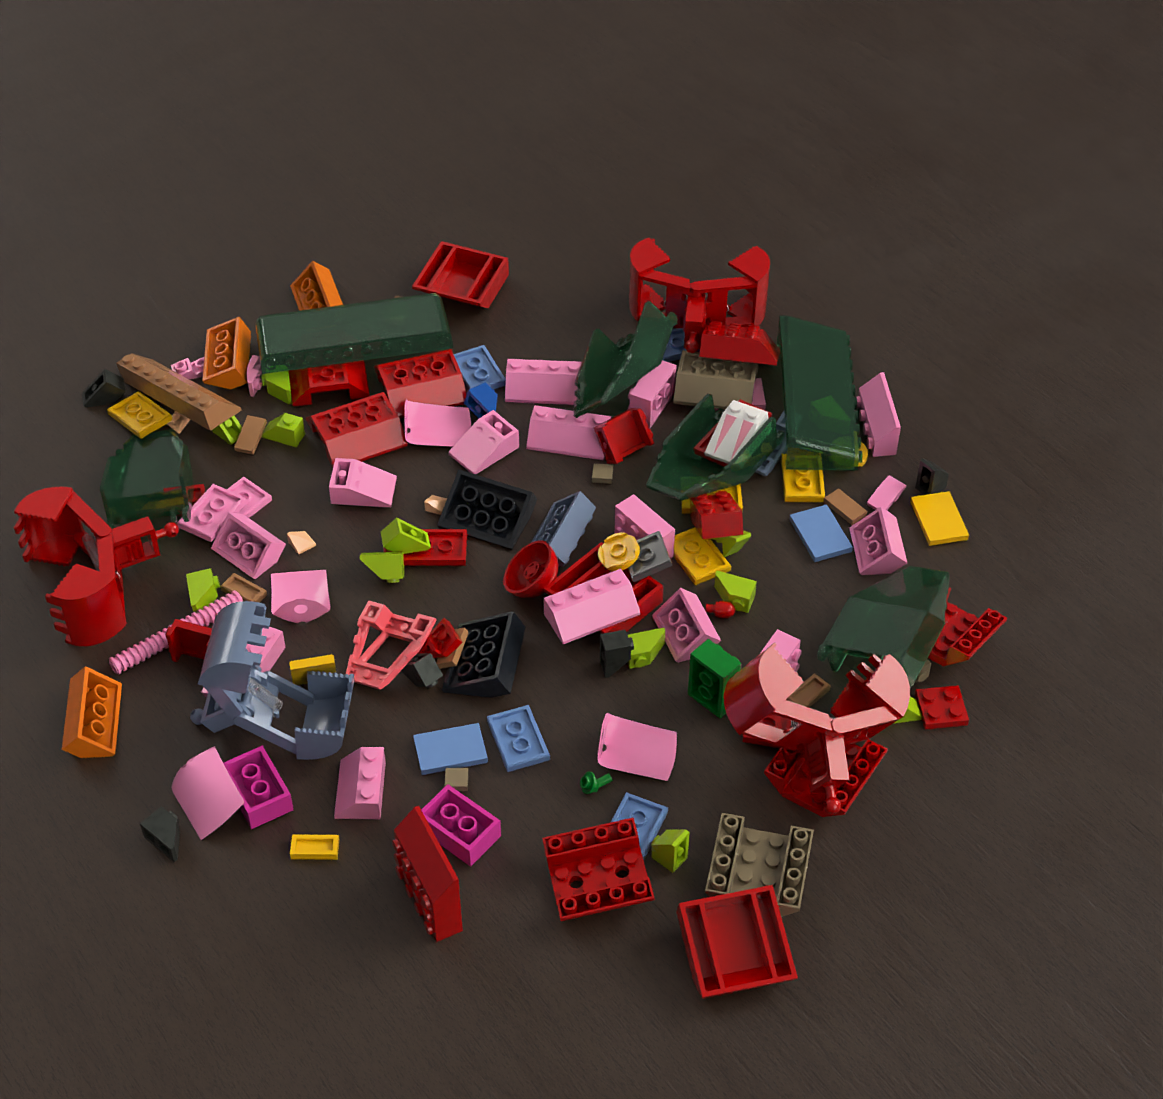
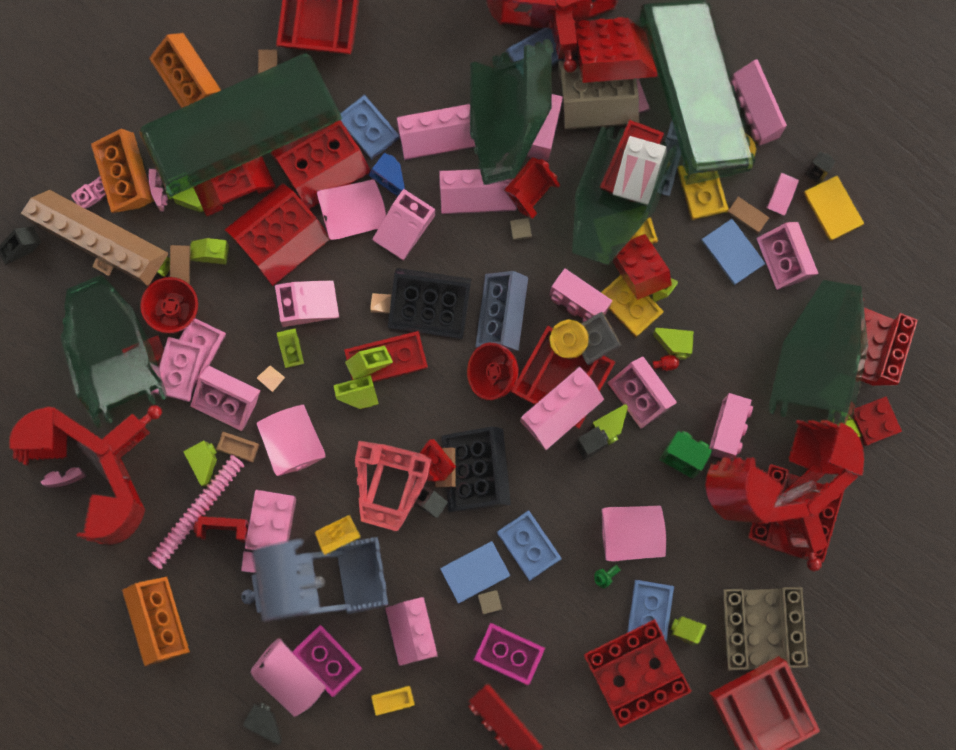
camera: 20 degrees left, 30 degrees up
(49, 577) = (56, 479): none -> bright pink slope
(139, 414) = (64, 265): yellow tile -> none
(225, 457) = (163, 297): none -> red piece
(331, 516) = (290, 348): none -> lime slope
(810, 691) = (761, 435): medium nougat tile -> none

